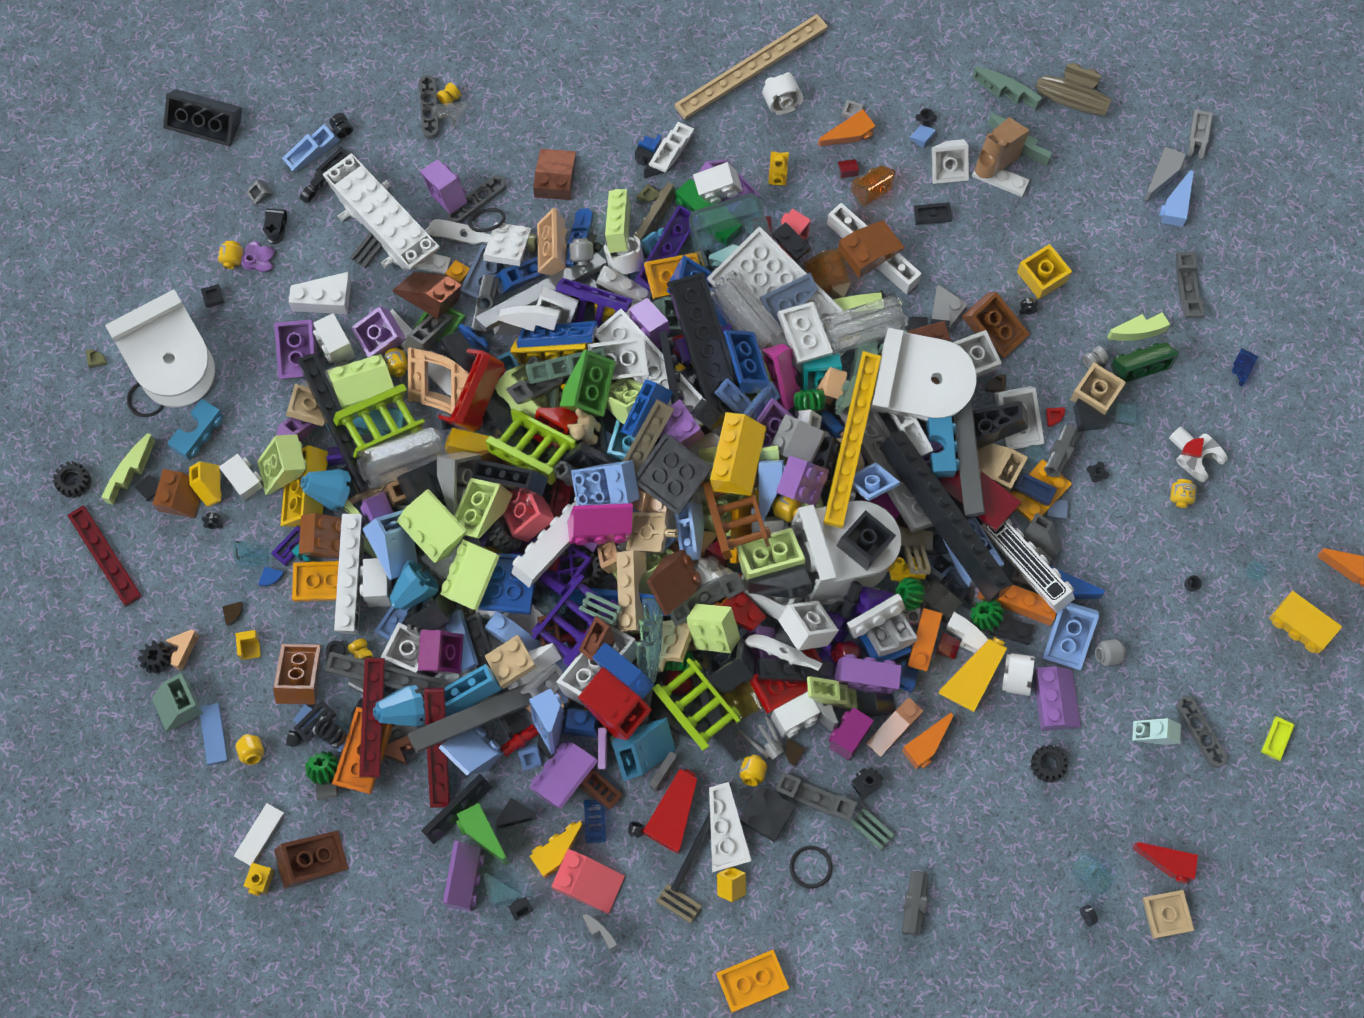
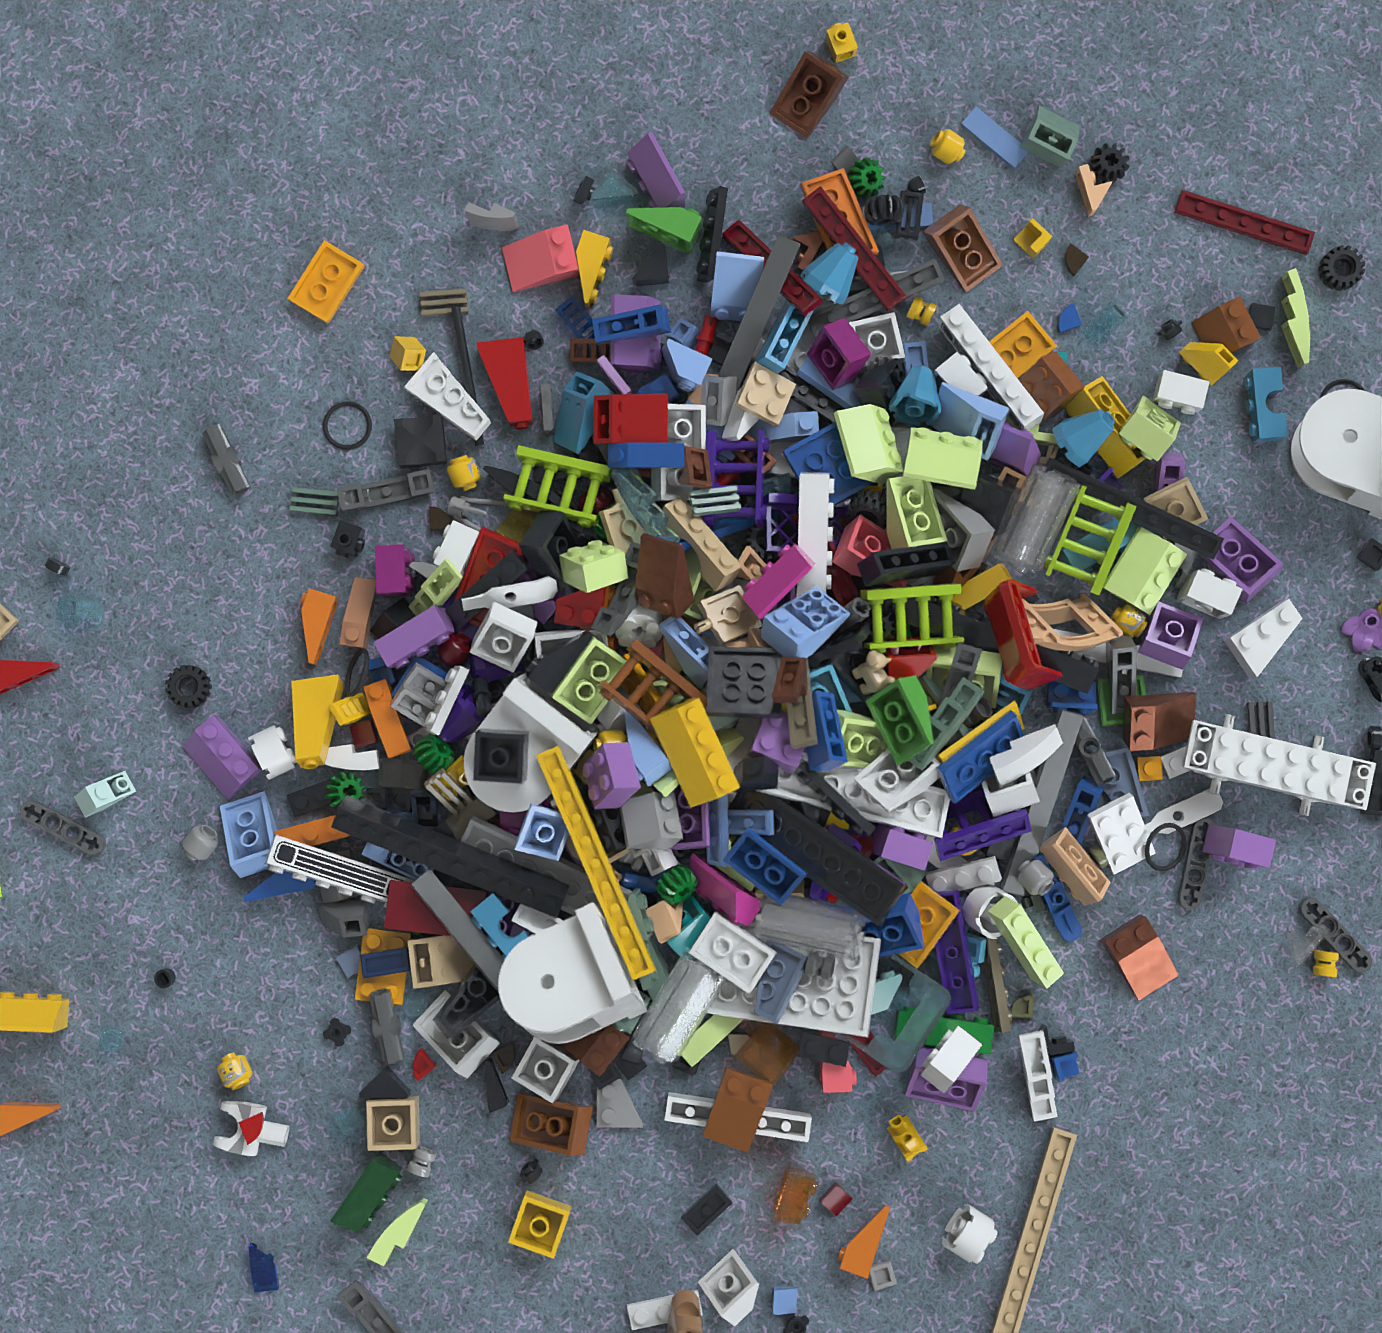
camera: 145 degrees right, 15 degrees up
(259, 834) = (875, 82): white tile -> none
(286, 561) = (1066, 343): dark purple tile -> none
(336, 647) = (946, 297): black tile -> none
(563, 773) = (632, 324): none -> blue slope
(643, 447) = (790, 680): none -> copper slope
(756, 285) = (820, 966): none -> dark grey wheel
(917, 677) = (363, 675): none -> black tyre
(945, 664) = (350, 709): none -> yellow slope
(1018, 364) = (495, 1090): none -> black slope

